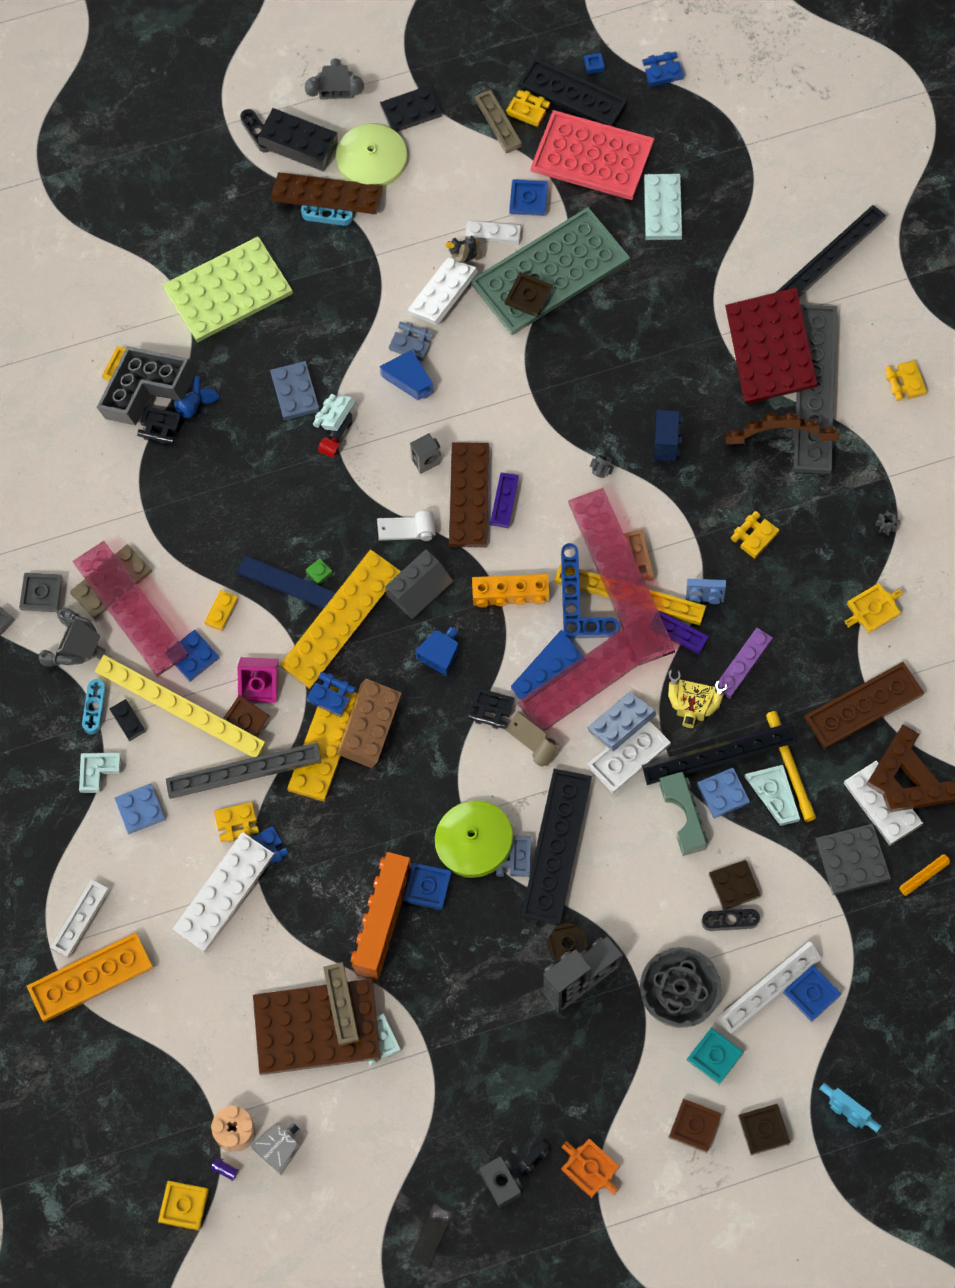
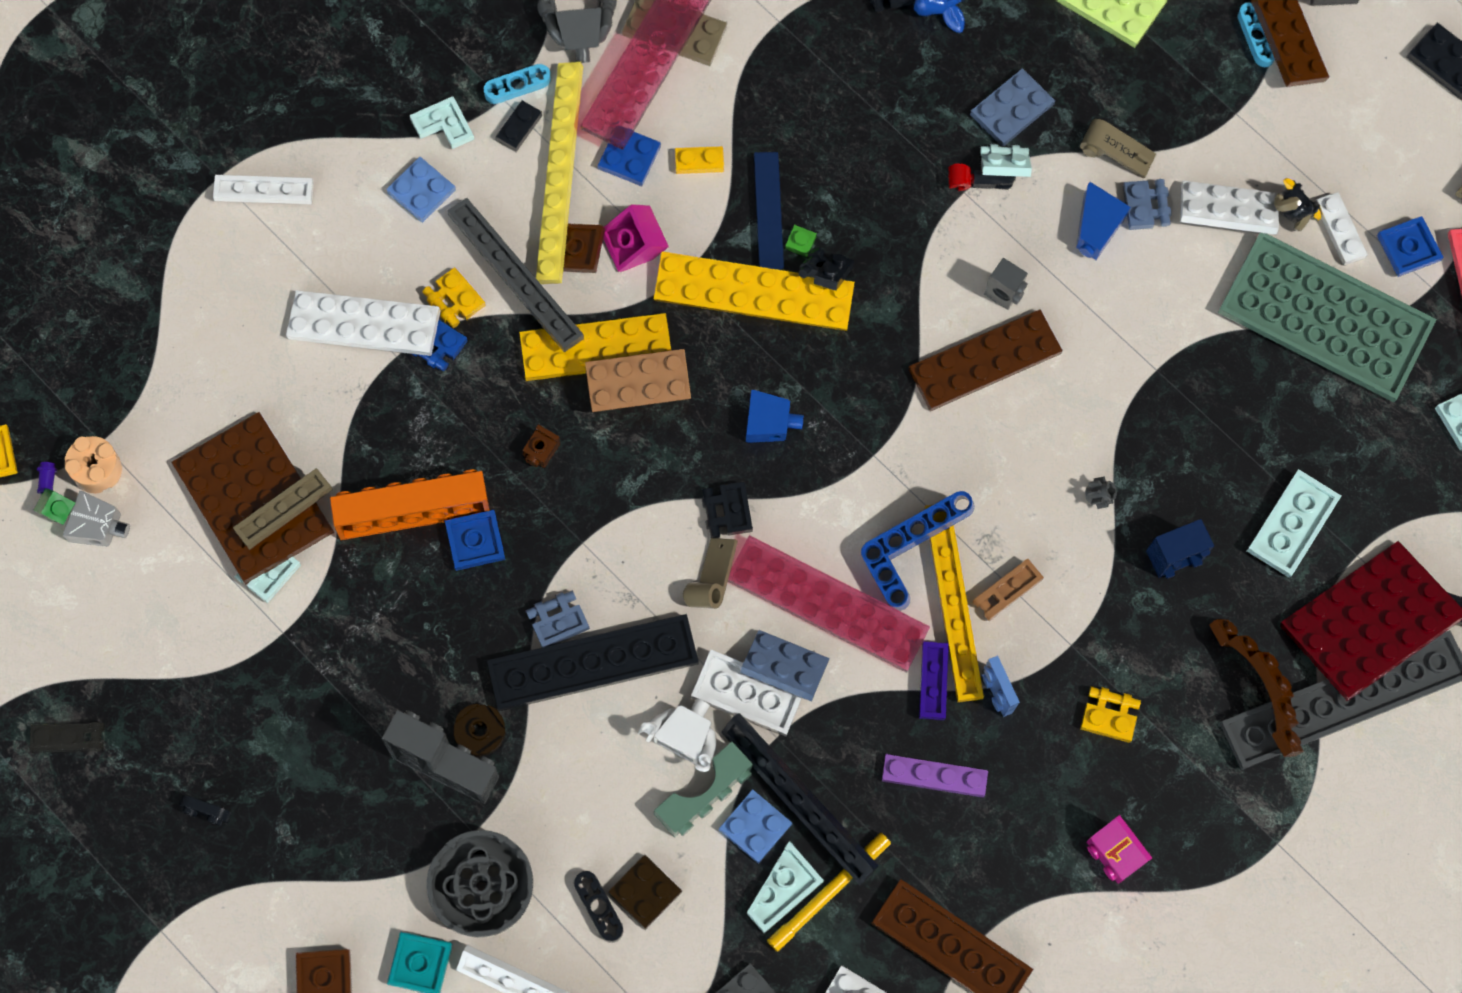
camera: 55 degrees right, 5 degrees up
(89, 977) = (202, 232): light orange plate -> none
(252, 1169) = (54, 506): none -> green brick
(328, 699) = (645, 323): blue plate -> none
(352, 561) = (826, 271): none -> black plate
(353, 342) = (1106, 139): none -> dark tan door
(371, 155) = (1362, 47): yellowish green dish -> none
(378, 804) = (541, 456): none -> reddish brown brick
(417, 527) = (905, 310): white door -> none
(418, 584) = (839, 356): dark grey slope -> none
(476, 854) = (556, 564): lime dish -> none
(502, 1194) = (144, 790): dark grey brick -> none
(504, 500) = (998, 402): dark purple plate -> none
(510, 590) = (887, 462): light orange brick -> none
(528, 294) = (1277, 304): dark brown plate -> none
(551, 661) = (823, 551): blue wing -> none
(590, 1168) = (219, 879): orange plate -> none
(621, 577) = (966, 579): clear pink plate -> none
(638, 807) = (684, 733): none -> white torso
(682, 360) = (1294, 523): none -> light aqua plate
(693, 699) = (855, 737): light yellow torso -> none
(850, 571) = (1118, 850): none -> dark pink slope
(873, 608) = (1087, 902): yellow plate -> none
(887, 522) = (1218, 866): dark grey gear -> none
(910, 378) = (1425, 813): yellow plate -> none

